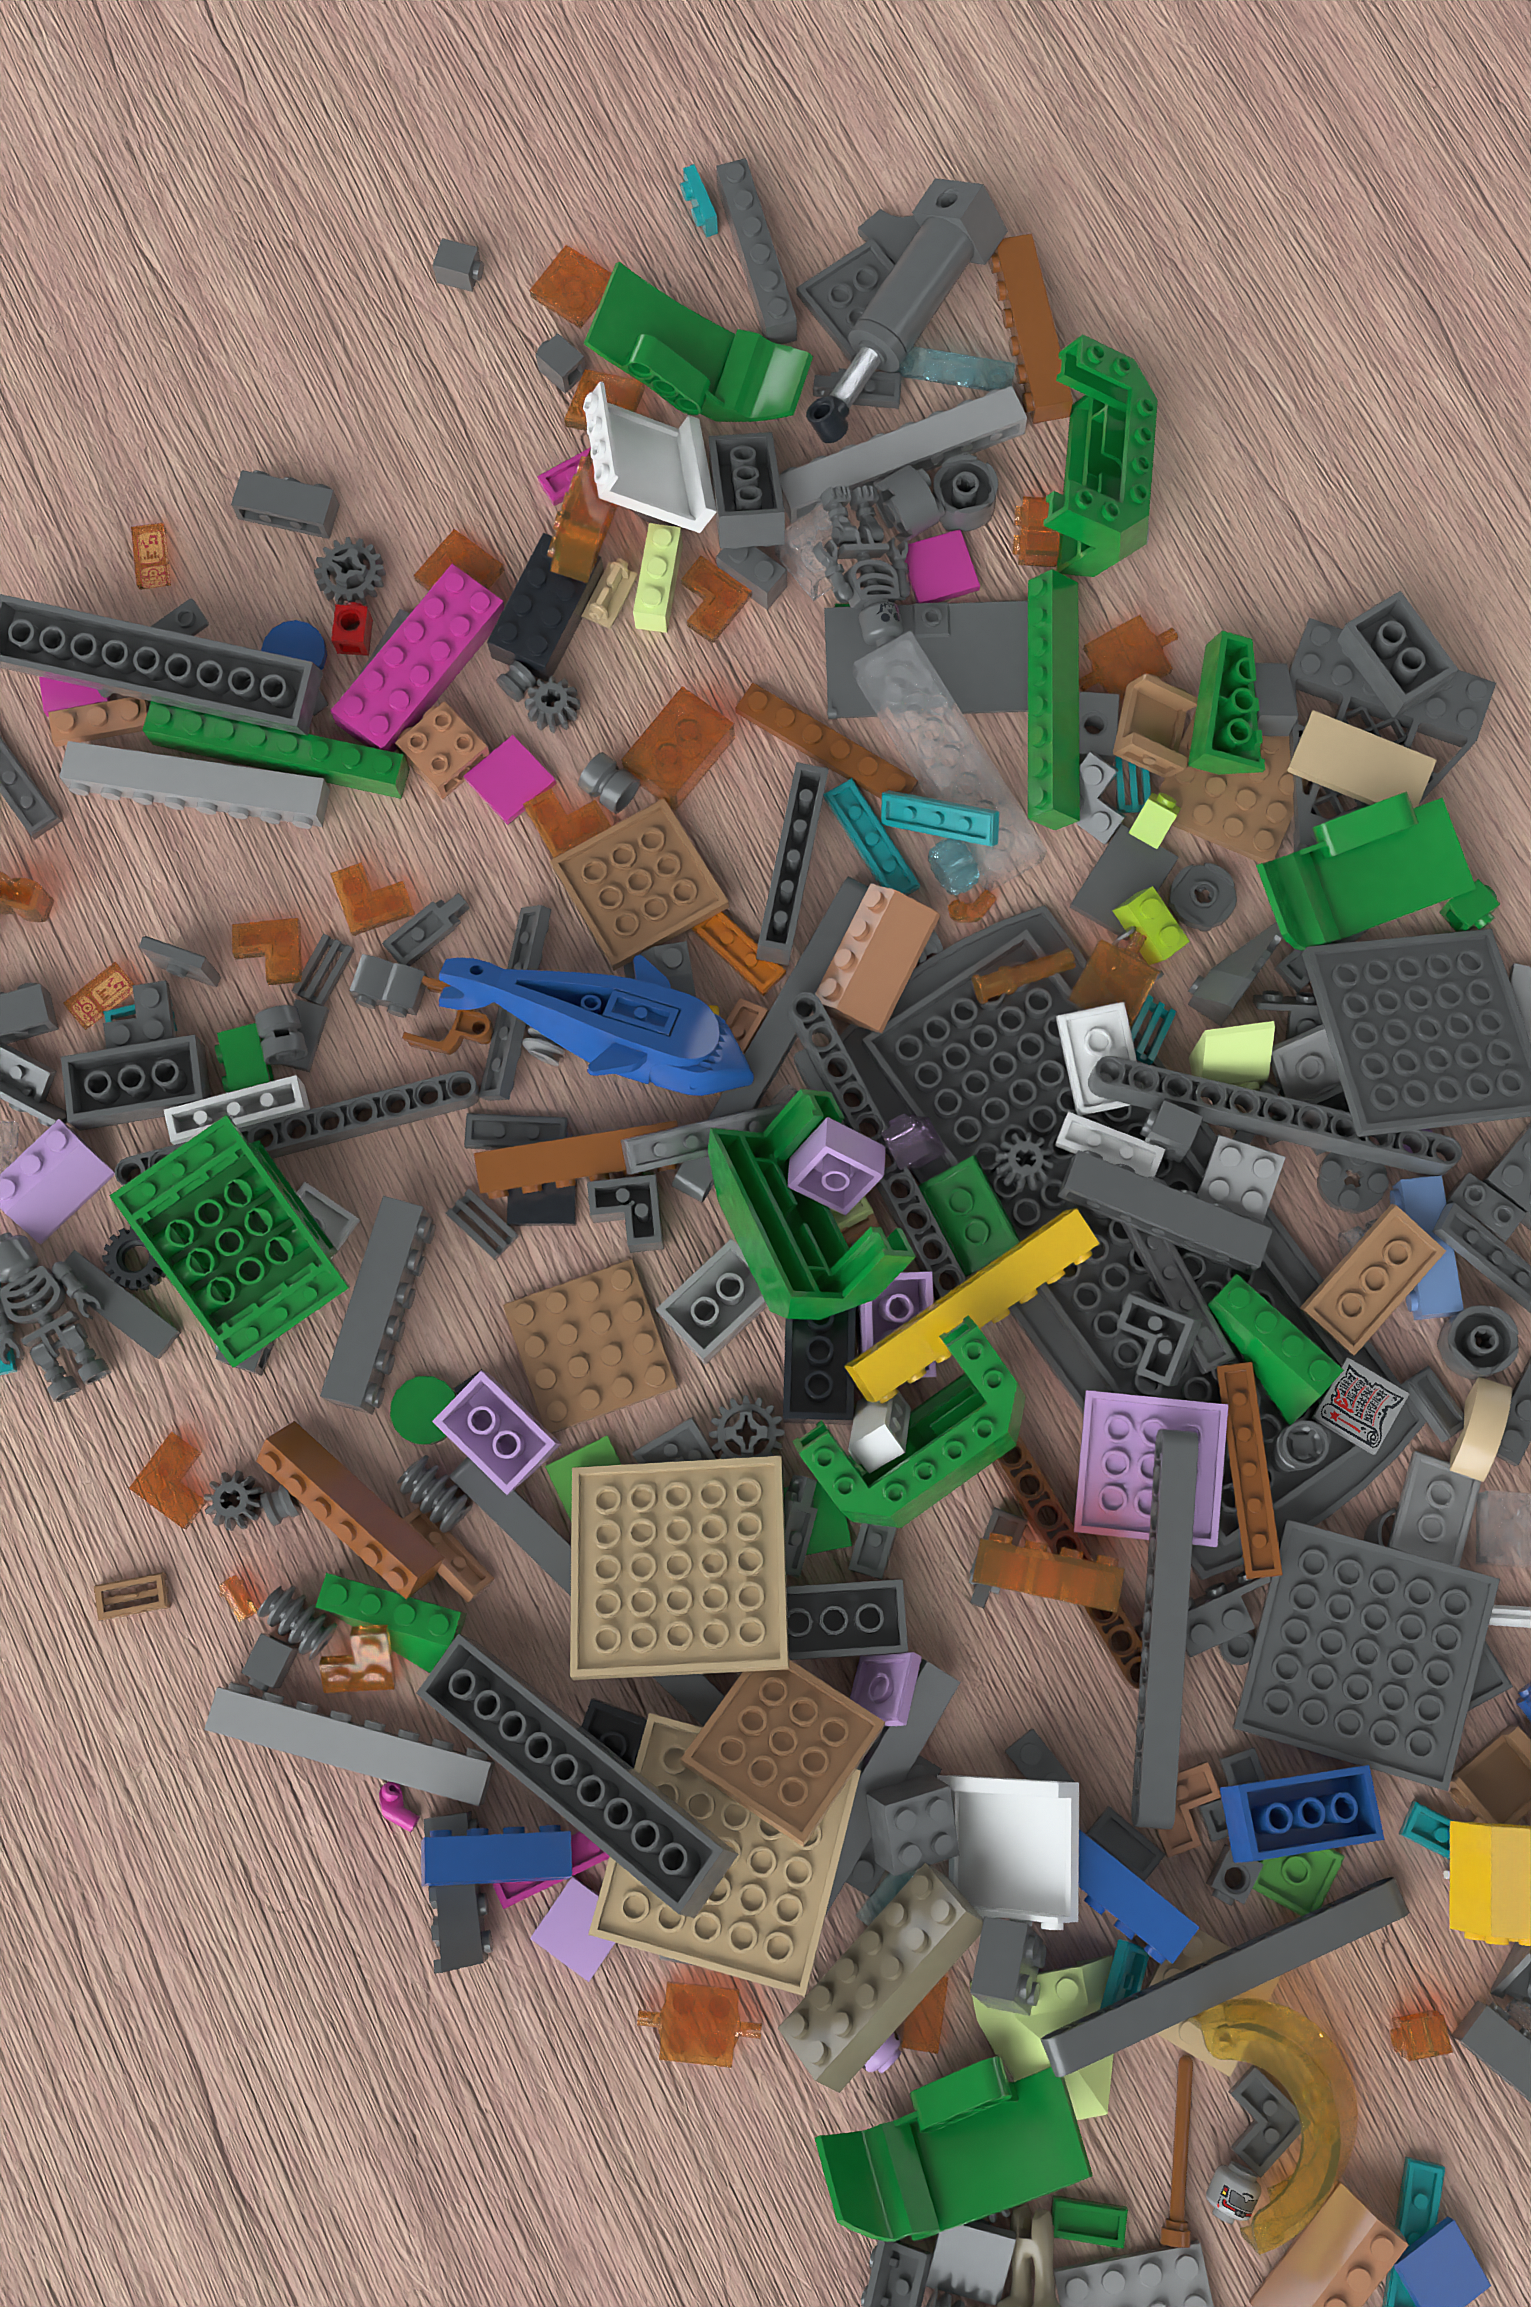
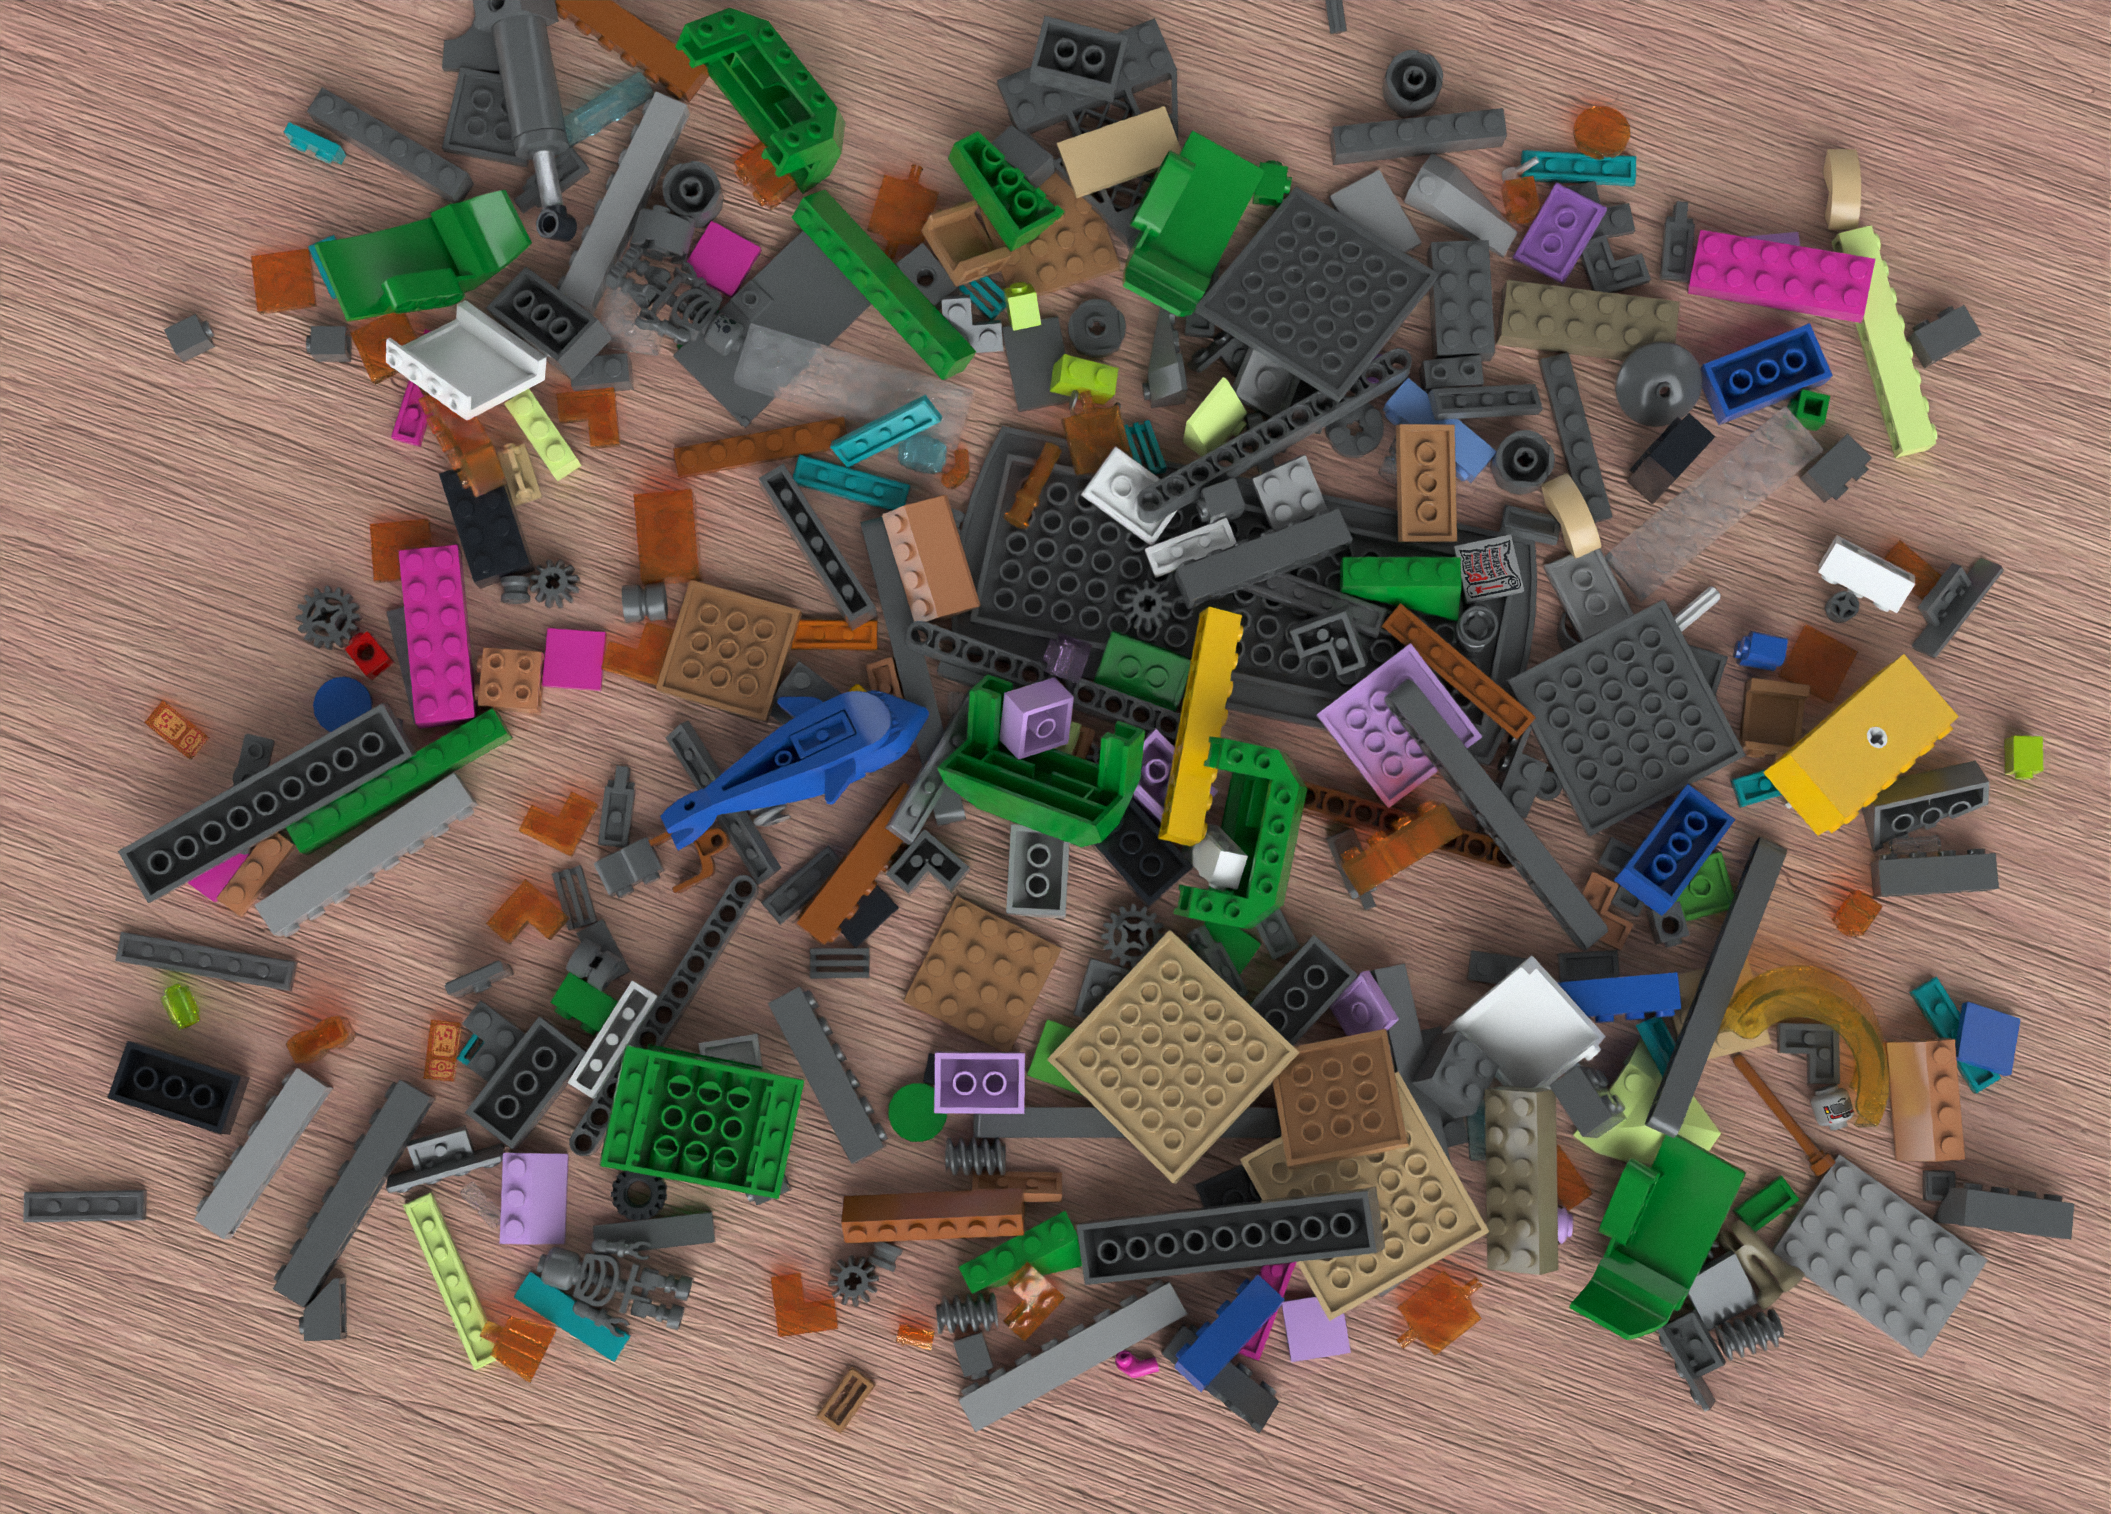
camera: 50 degrees left, 5 degrees up
(285, 503) = (236, 610): dark grey brick -> none

